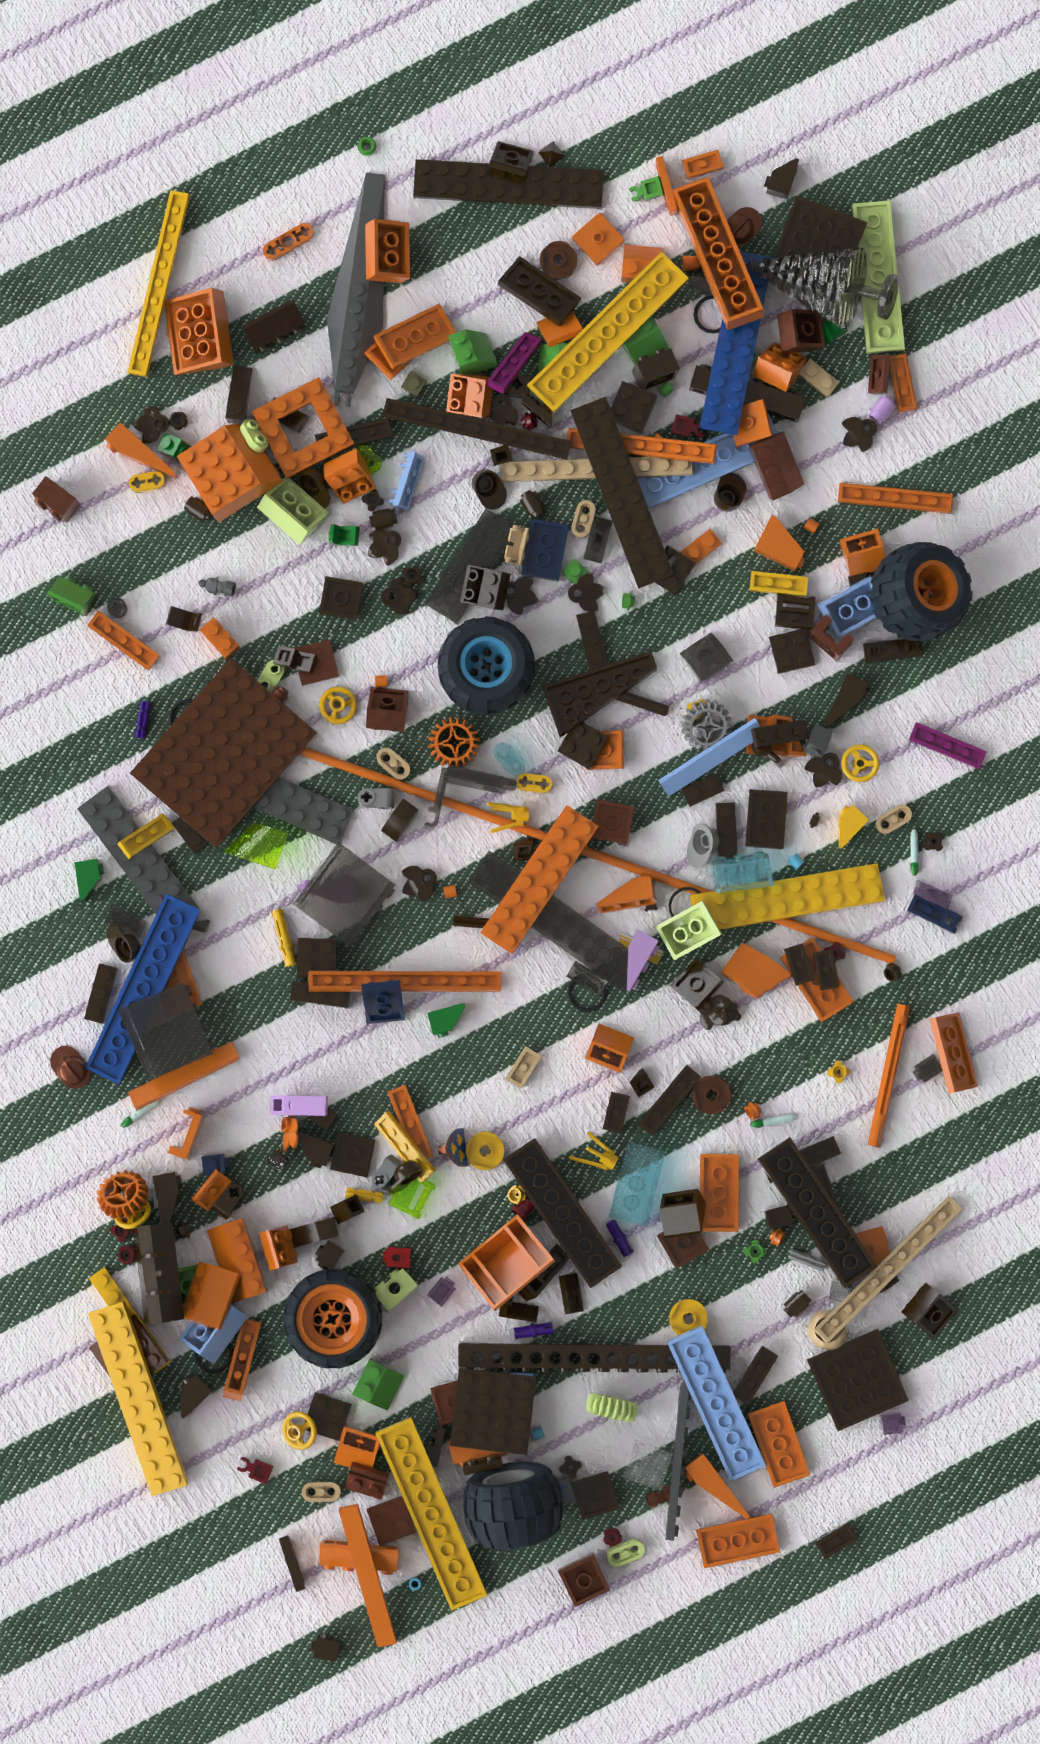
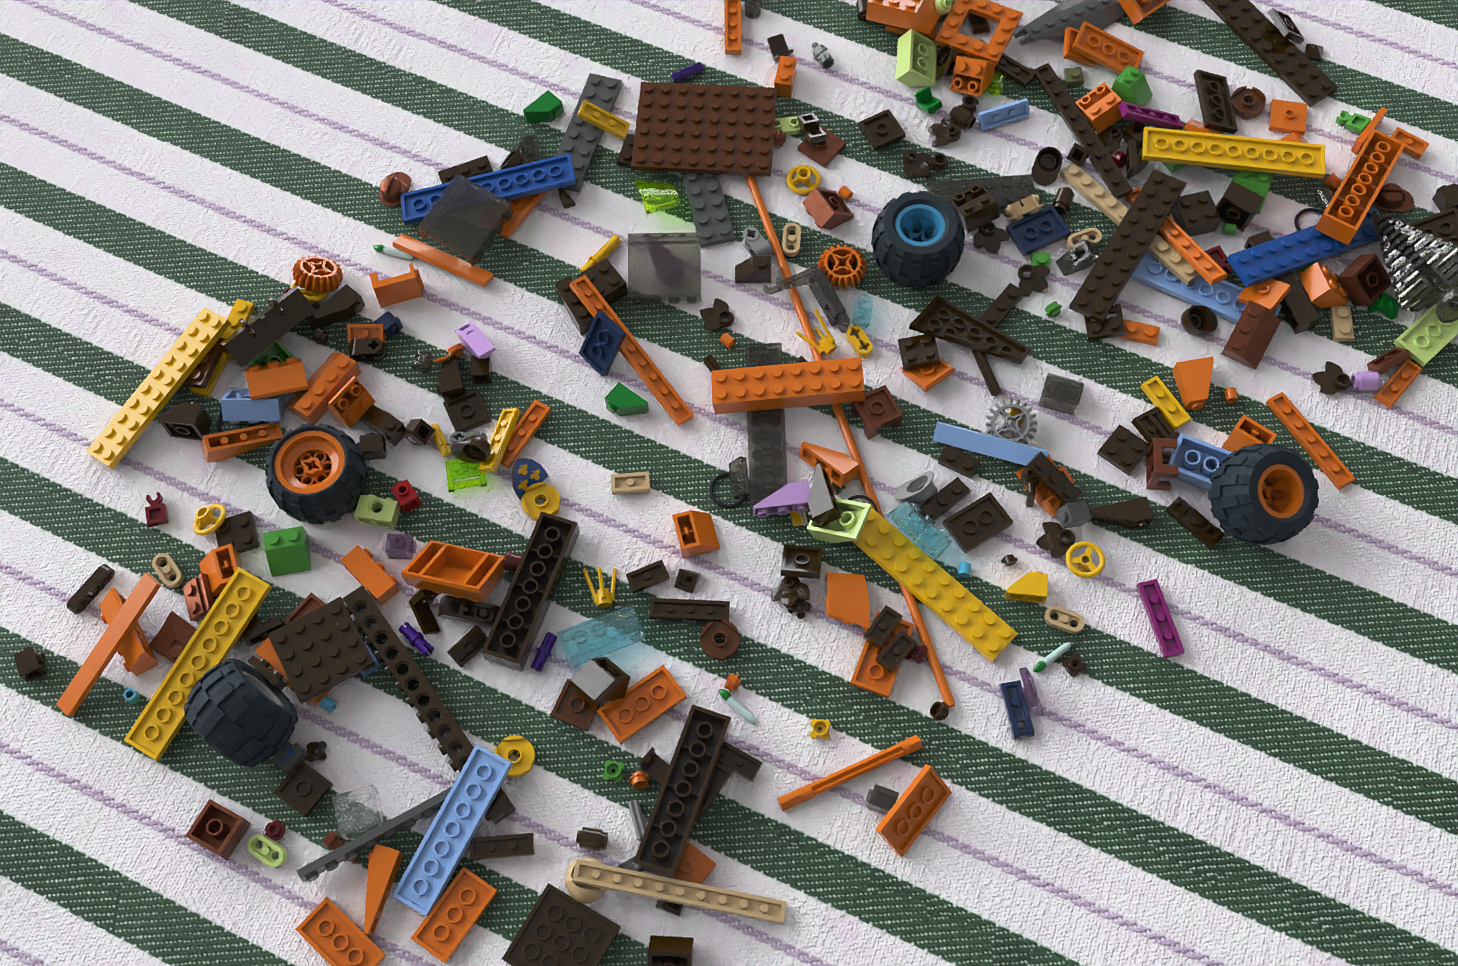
camera: 55 degrees right, 20 degrees down
(449, 1330) = (370, 574): none -> orange brick
(512, 1194) = (519, 547): yellow plate -> none
(612, 1407) = (389, 744): yellowish green gear -> none
(664, 931) = (822, 499): none -> slope

